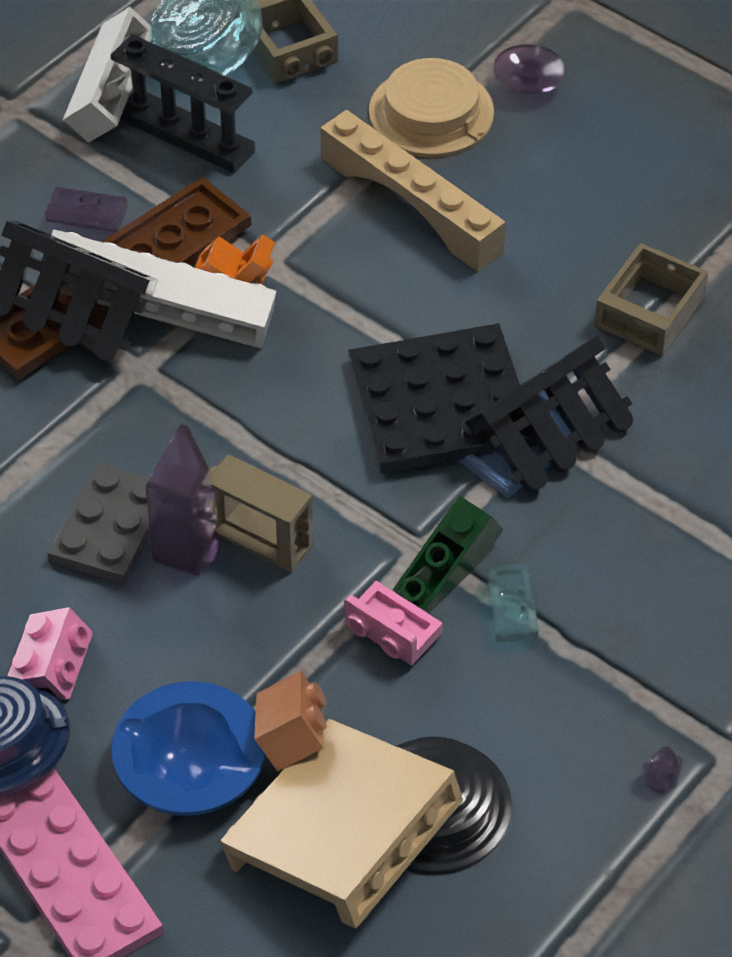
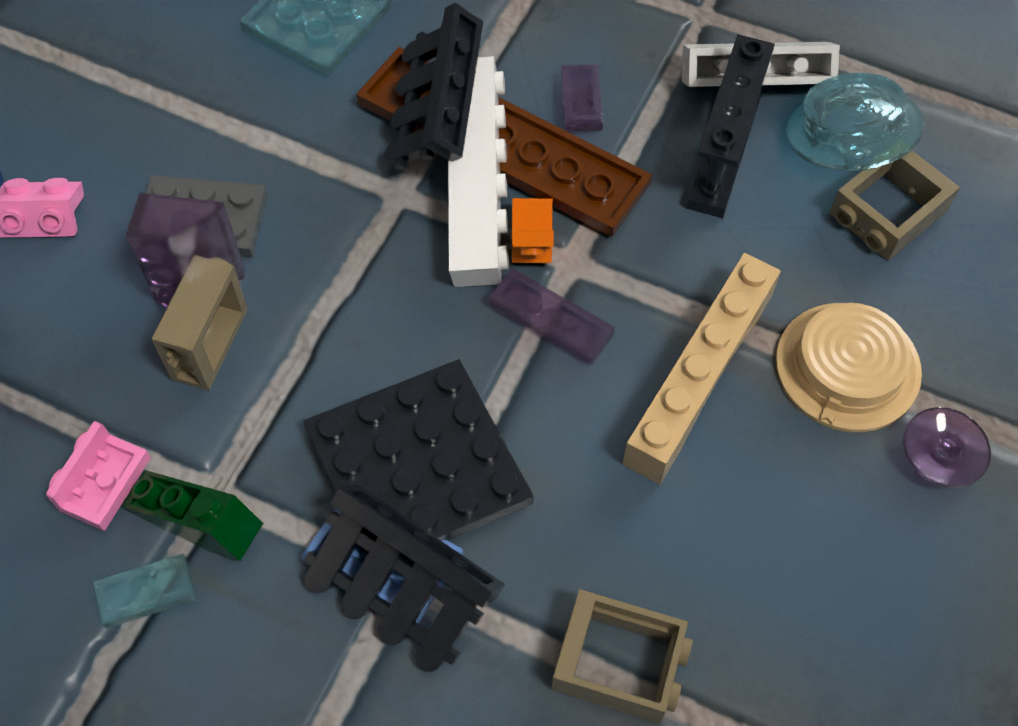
camera: 75 degrees right, 10 degrees up
(325, 279) = (551, 316): none -> clear purple plate

